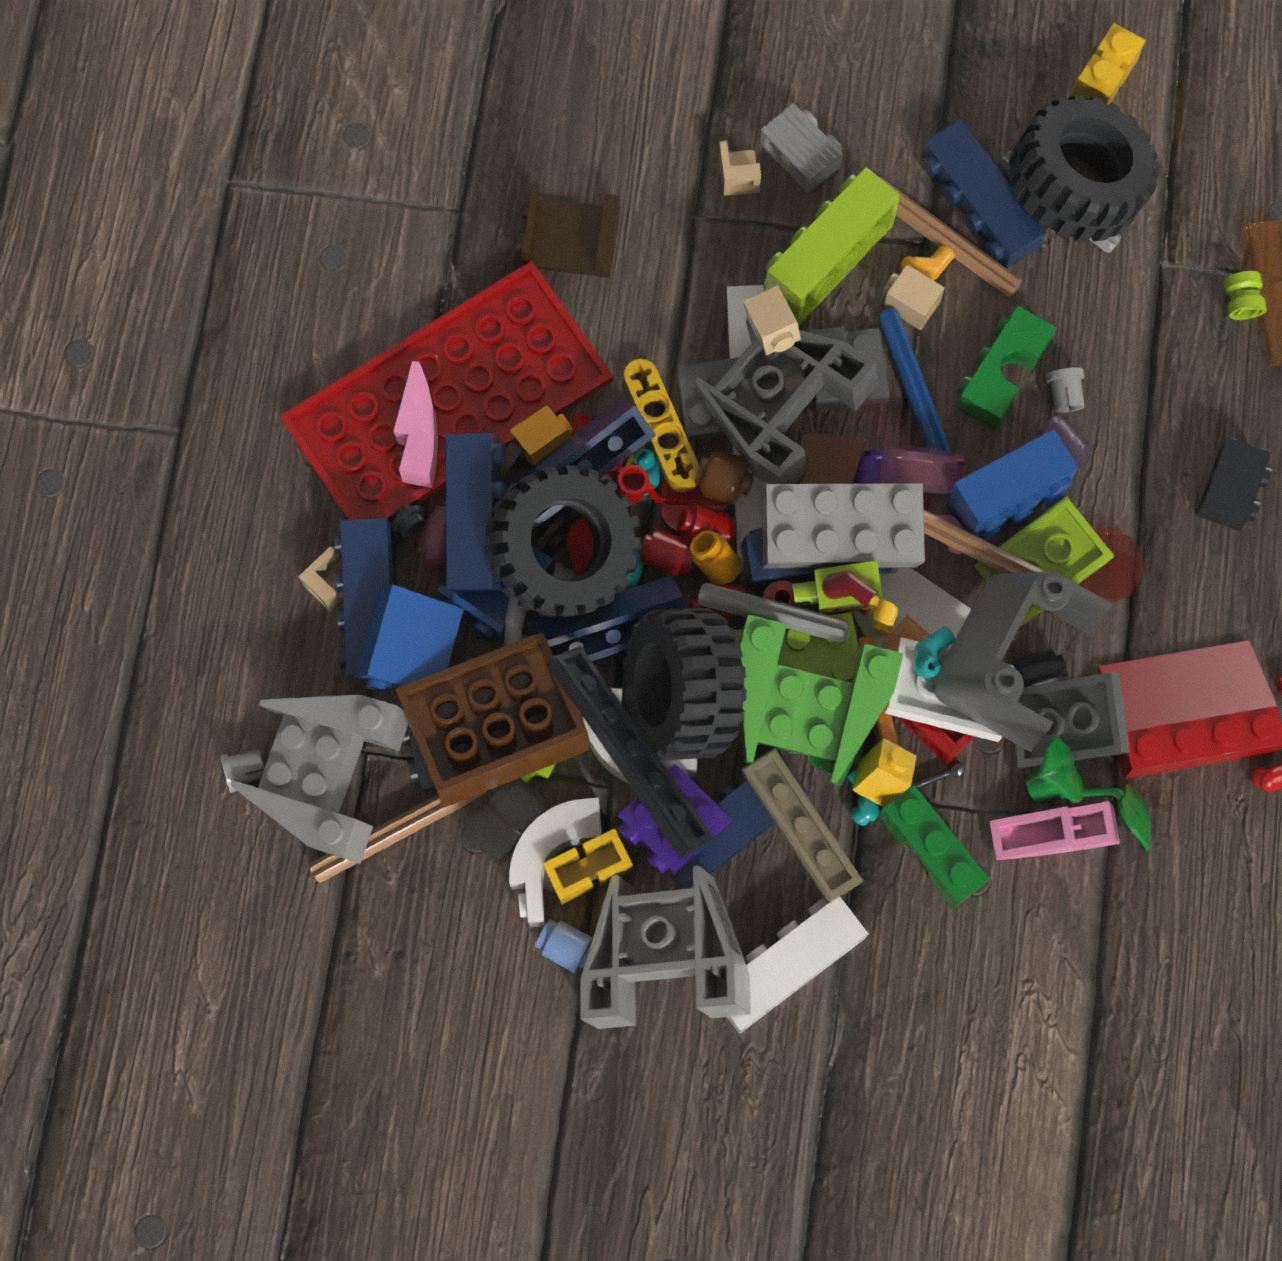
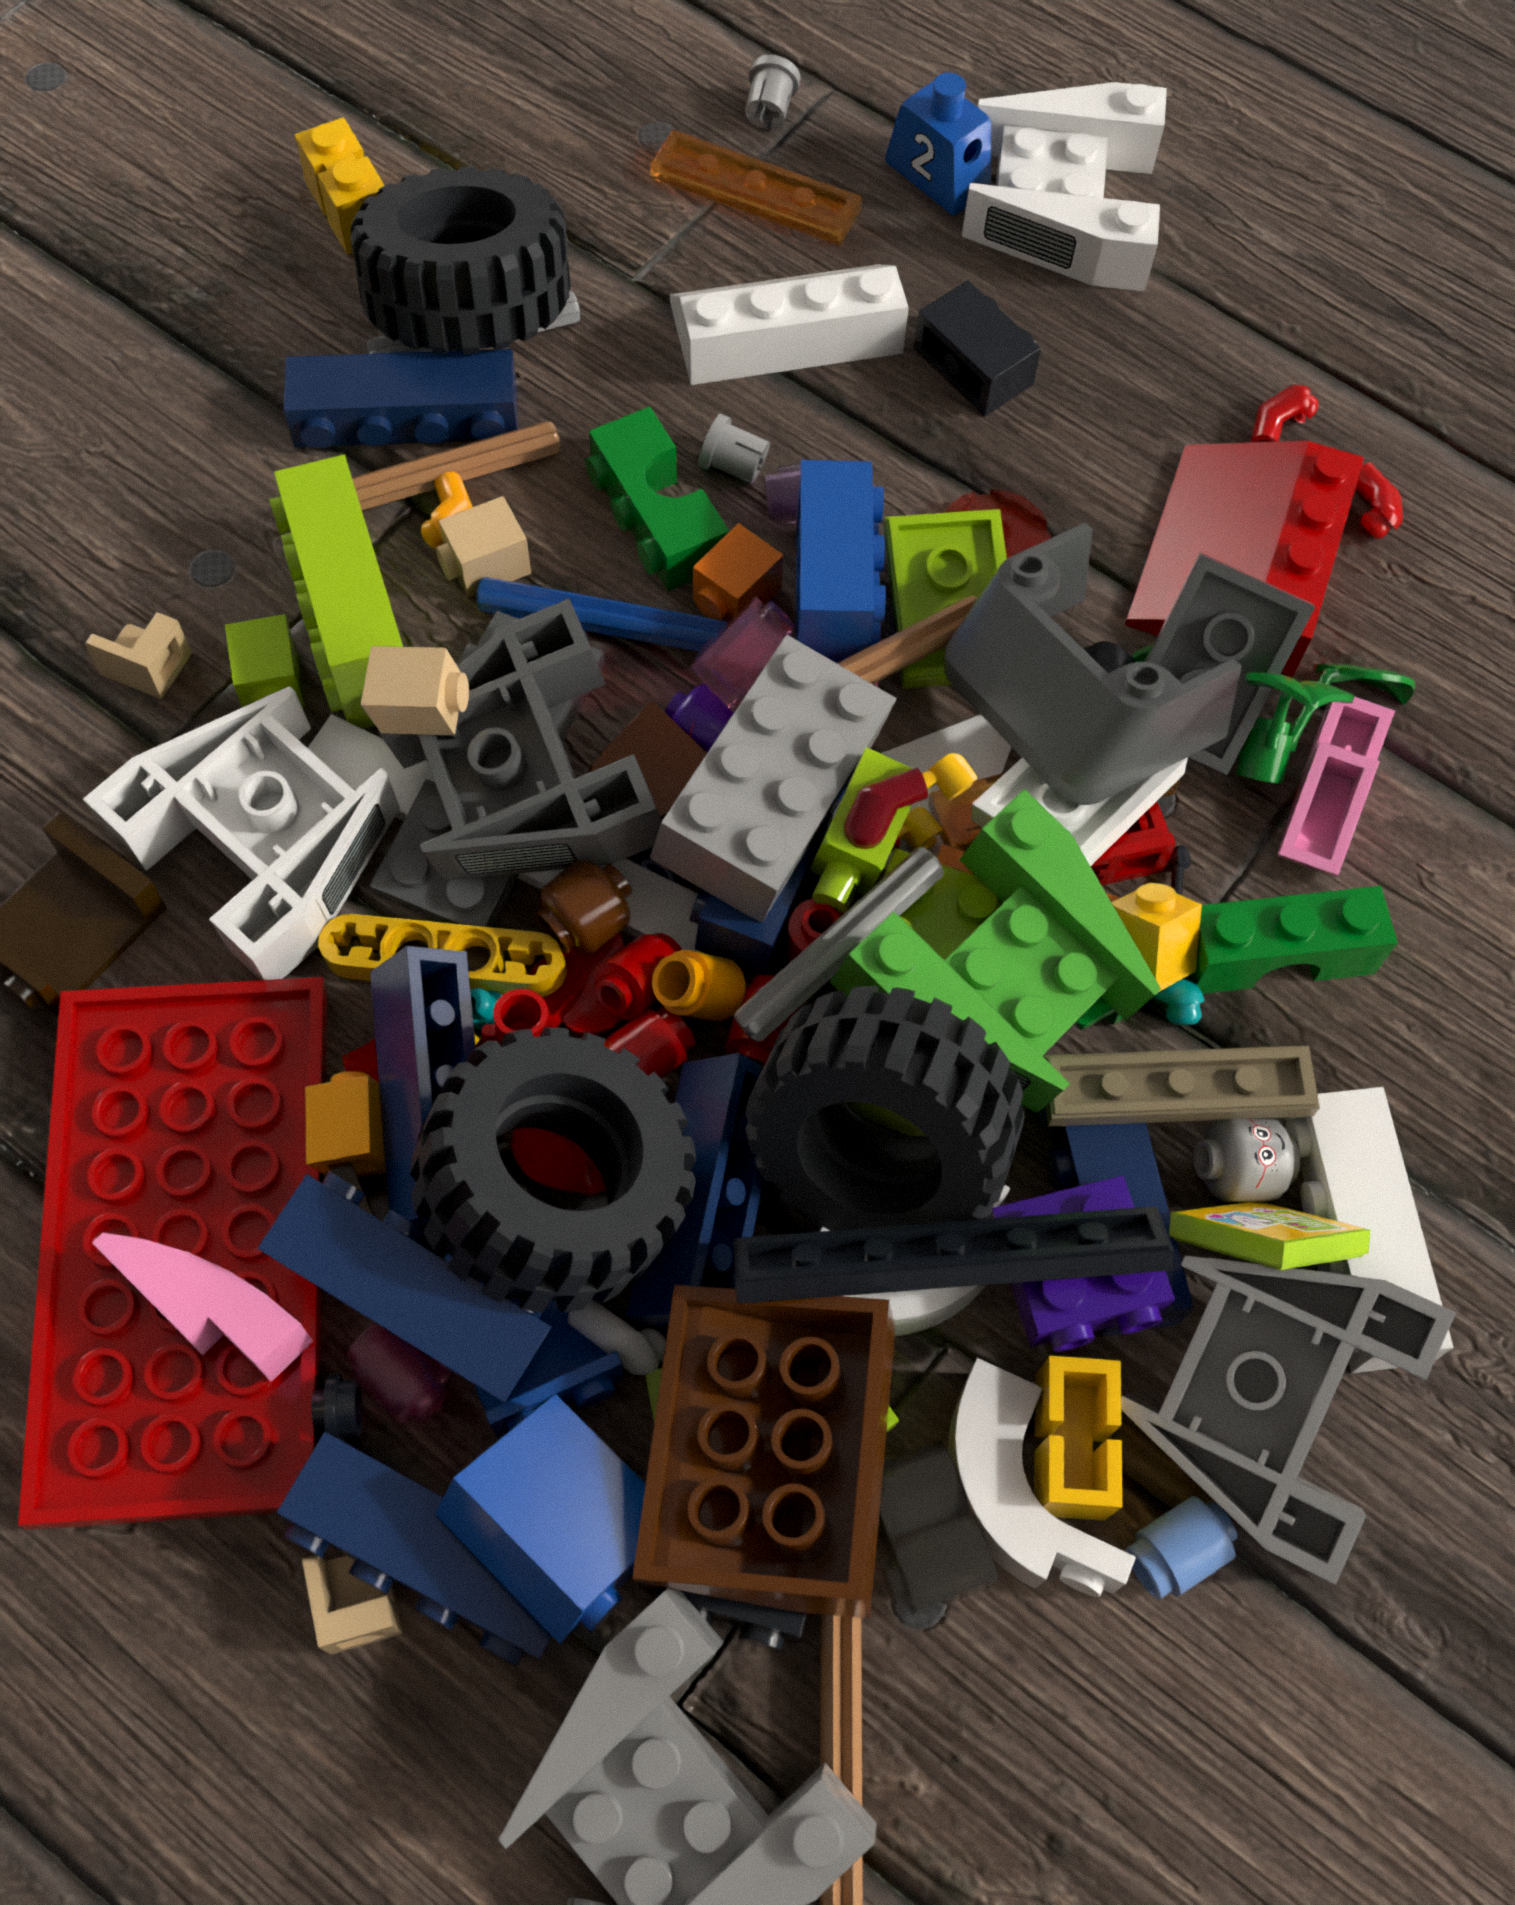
camera: 65 degrees left, 10 degrees down
(679, 293) = (267, 810): none -> white wedge
(744, 908) = (1269, 1234): none -> lime tile
(767, 234) = (263, 658): none -> lime brick
(789, 885) = (1247, 1160): none -> light grey head
(801, 147) = (172, 561): light grey brick -> none
(927, 652) = (1015, 775): teal arm -> none
(979, 438) = (736, 573): none -> orange brick
(1184, 366) = (791, 323): none -> white slope
(1245, 295) = (740, 211): lime wheel -> none

